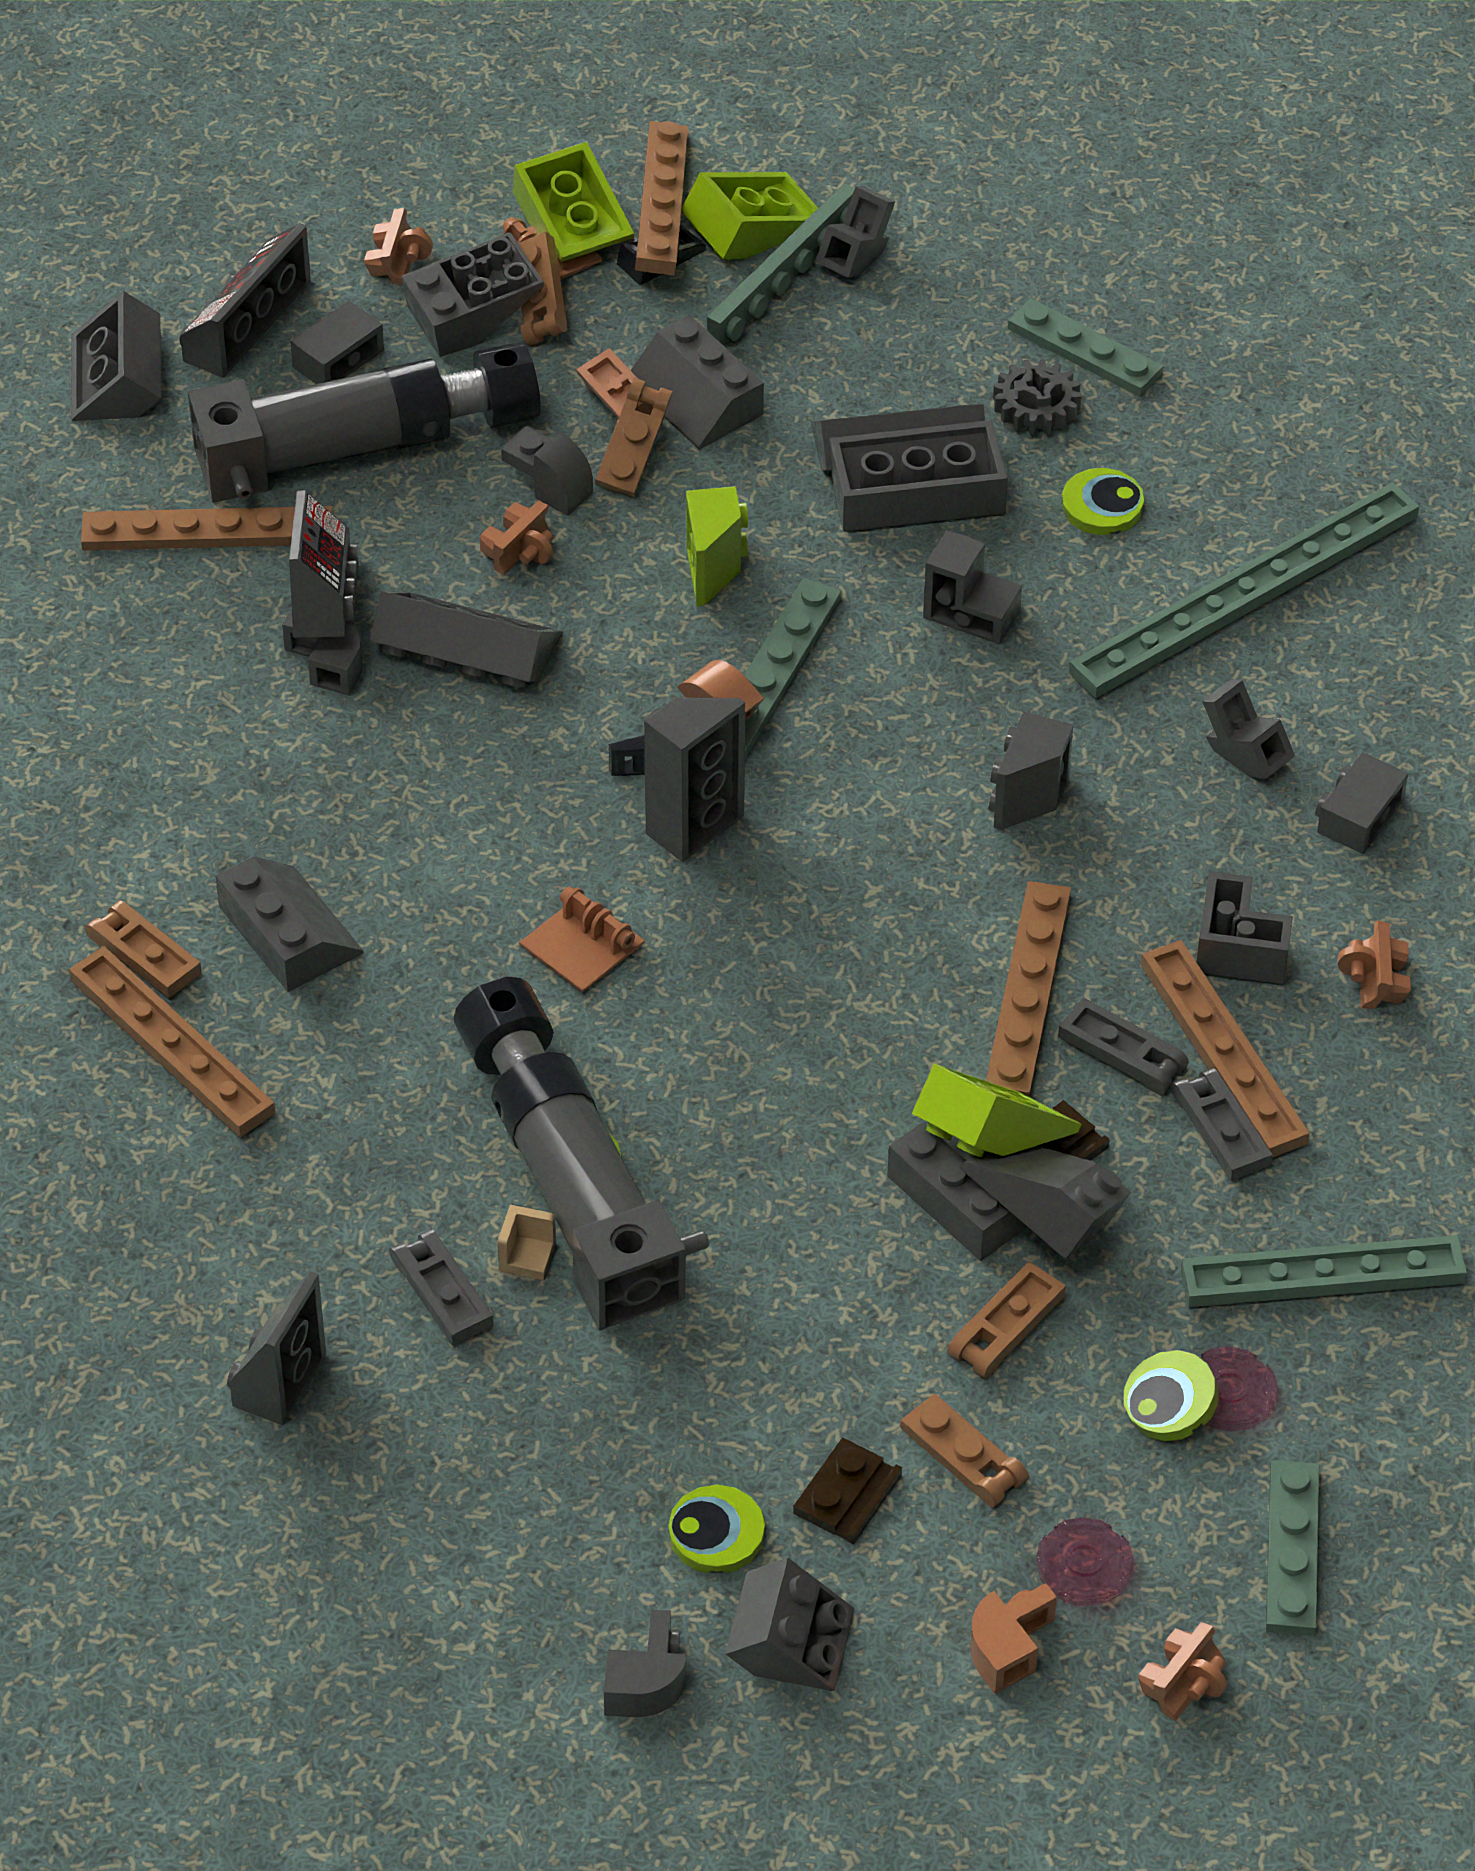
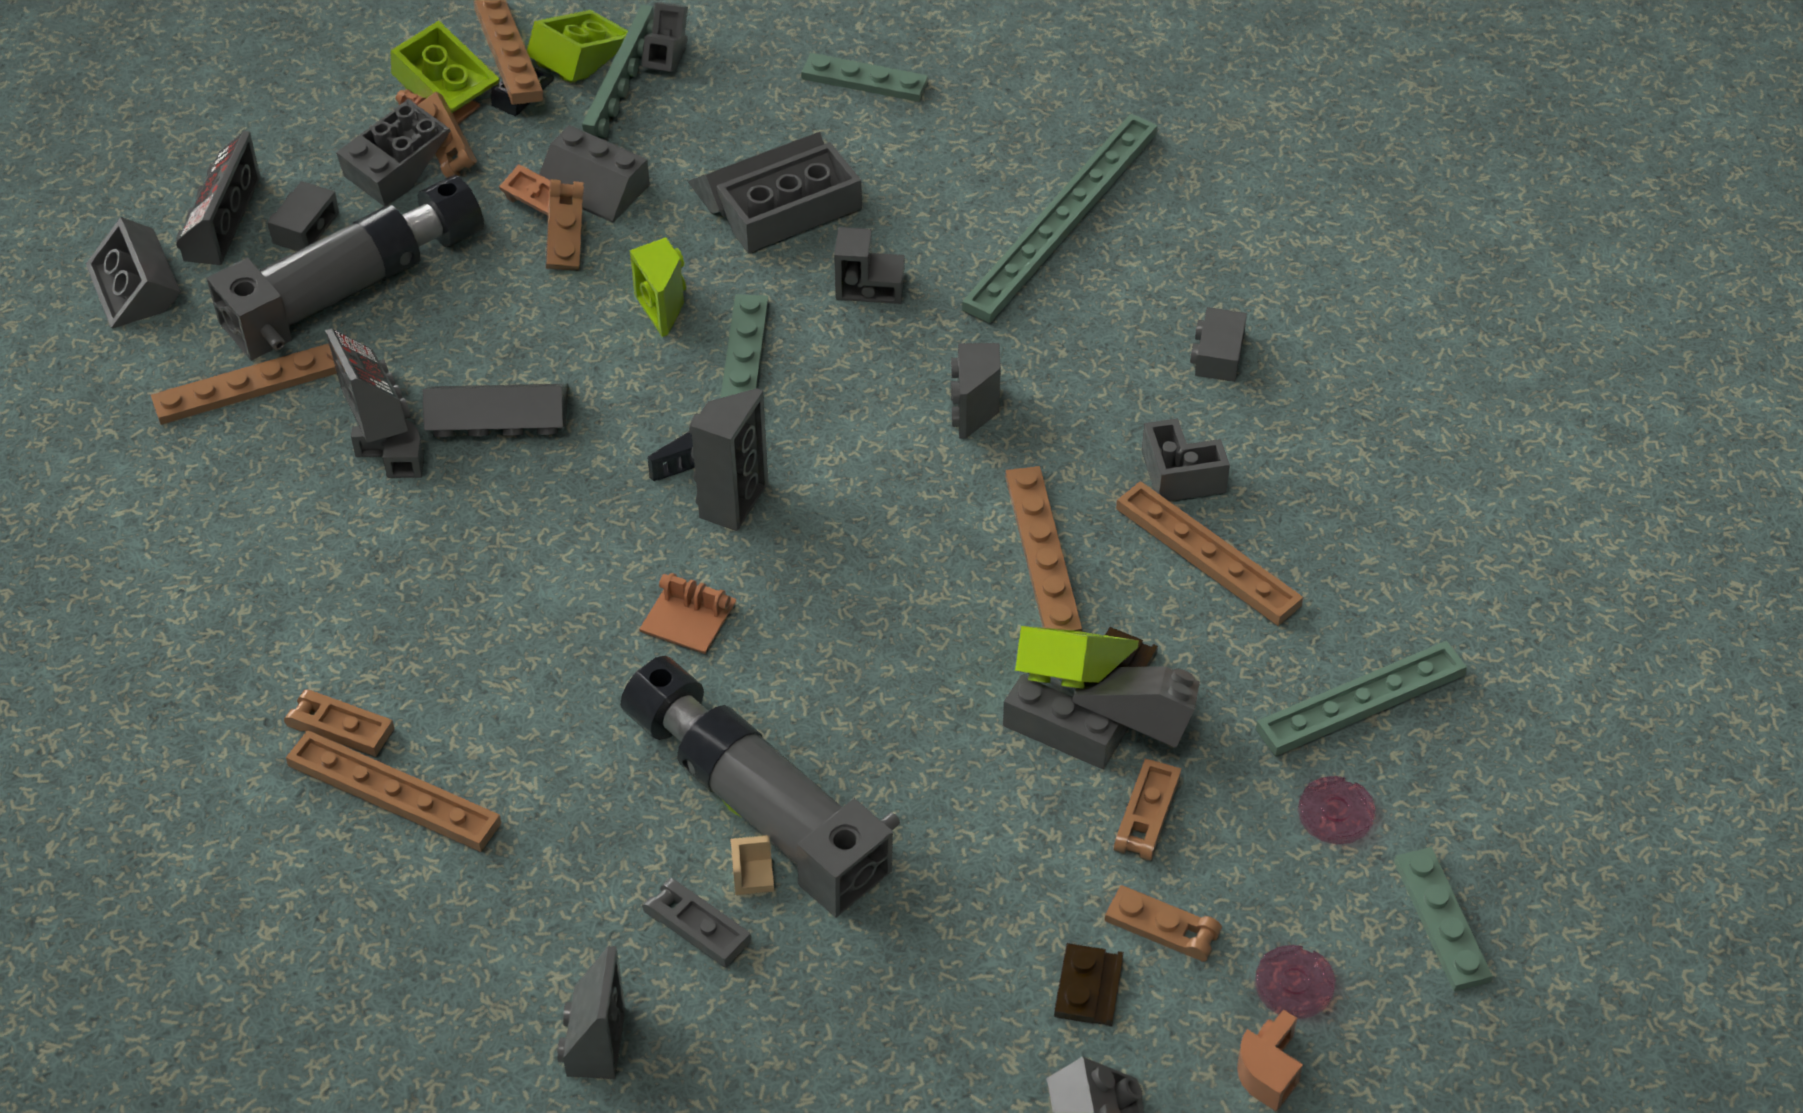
camera: 20 degrees left, 0 degrees up
(284, 921) = (445, 668): dark grey slope -> none
(397, 247) = (319, 134): nougat hips -> none
(525, 539) = (511, 322): nougat hips -> none
(556, 463) = (516, 261): dark grey brick -> none
(716, 1529) = (1002, 1050): tile -> none
(722, 680) = (712, 385): nougat brick -> none
(1037, 396) = (848, 119): dark grey gear -> none
(1102, 501) = (928, 181): lime tile -> none
(1123, 1045) = (1134, 572): dark grey plate -> none
(1170, 1395) = (1299, 829): tile -> none
(1192, 1671) = (1423, 1044): nougat hips -> none
(1222, 1124) = (1234, 609): dark grey plate -> none
(1246, 741) = (1113, 322): dark grey brick -> none
(1372, 966) = (1287, 458): nougat hips -> none

